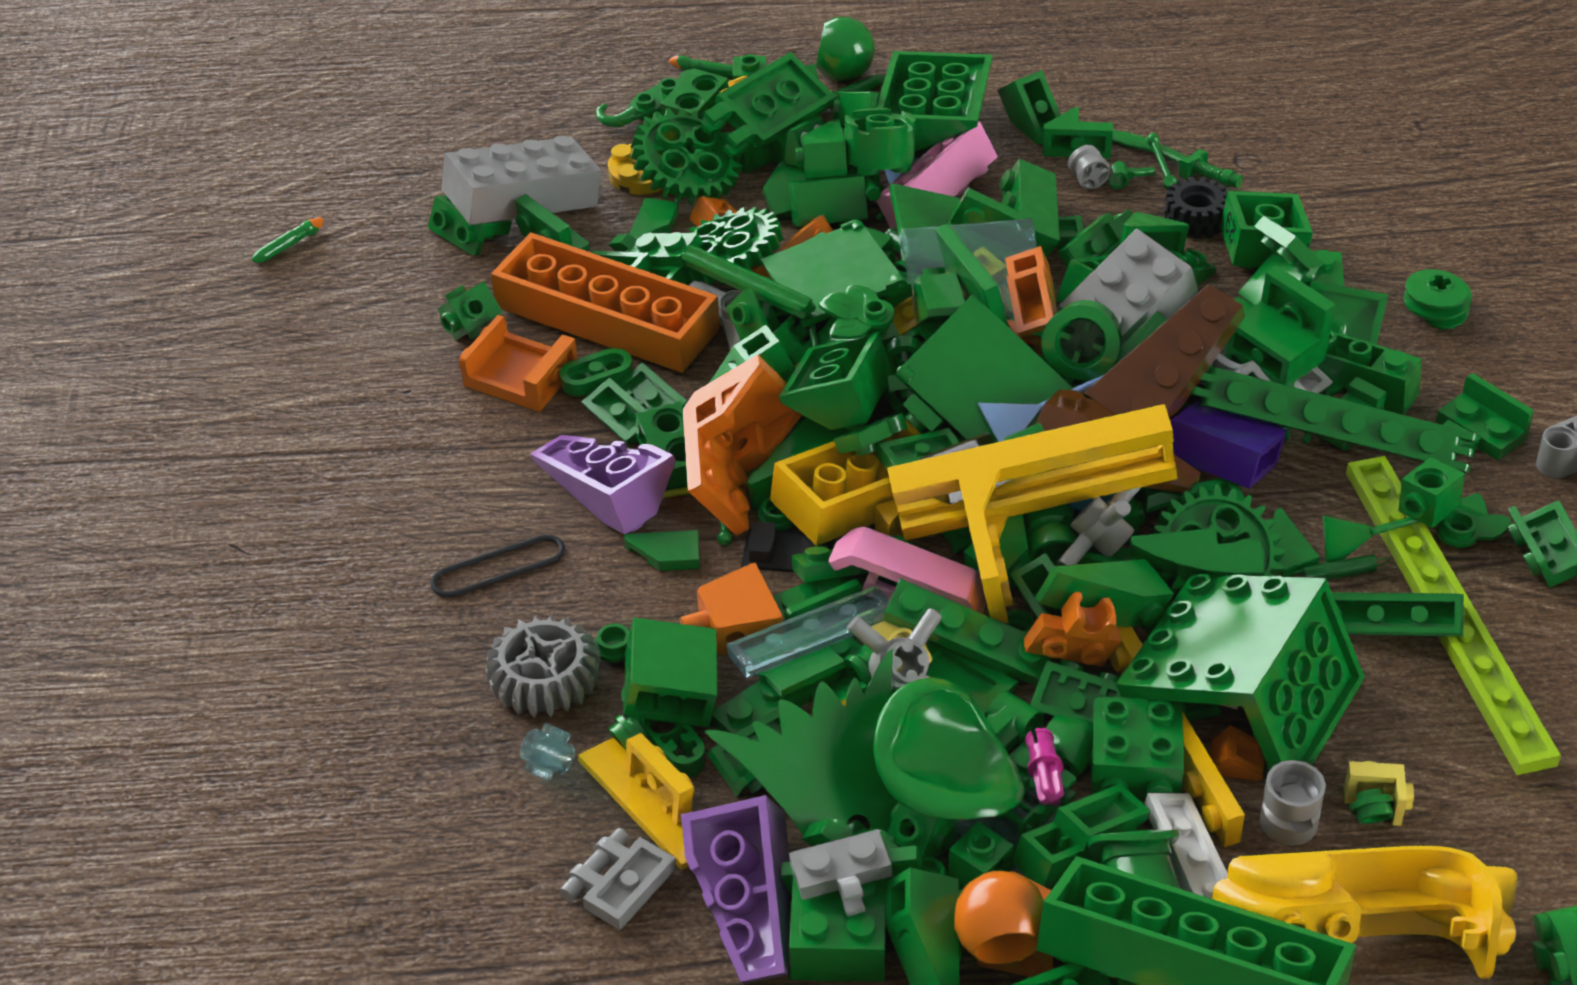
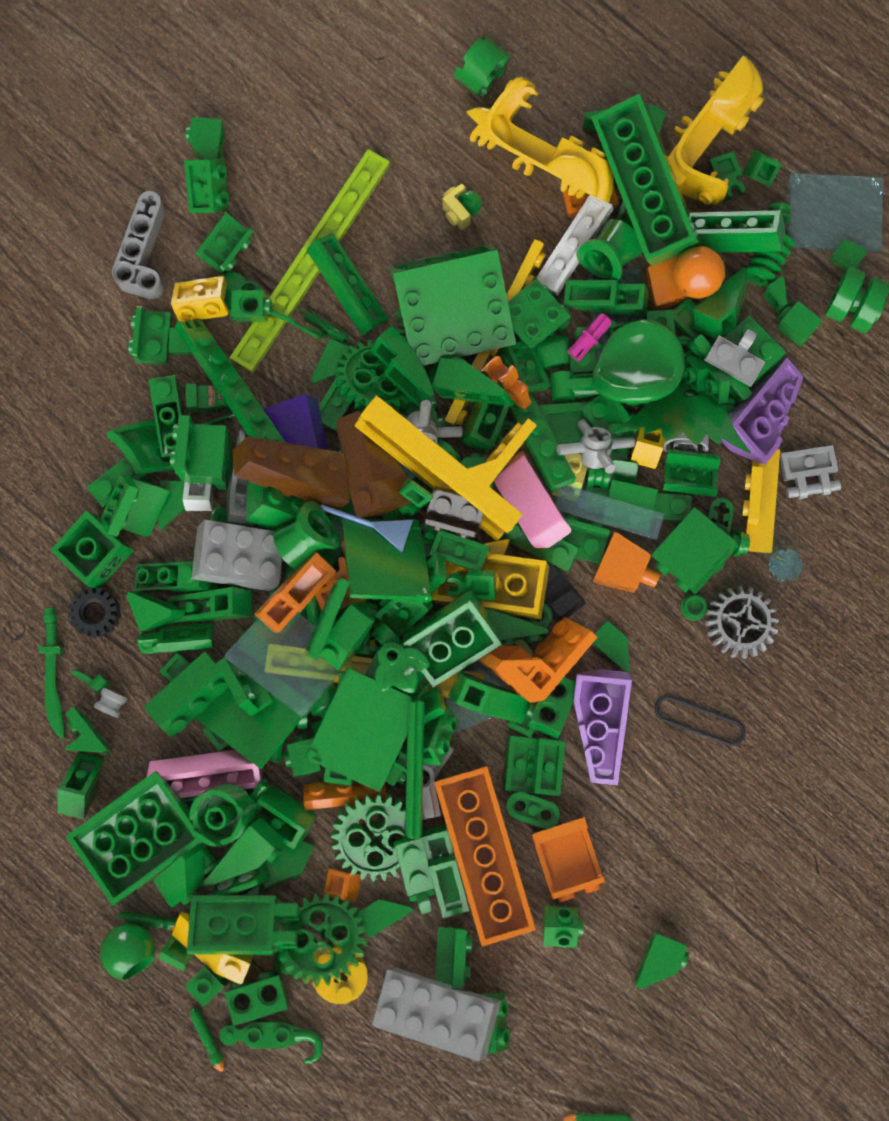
camera: 135 degrees left, 35 degrees up
(339, 361) = (661, 960): none -> green slope
(1153, 139) = (77, 653): green hinge -> none
(1292, 802) = (503, 230): light grey wheel -> none
(1438, 298) = (70, 413): green piece -> none
(1497, 476) = (200, 299): none -> yellow bracket

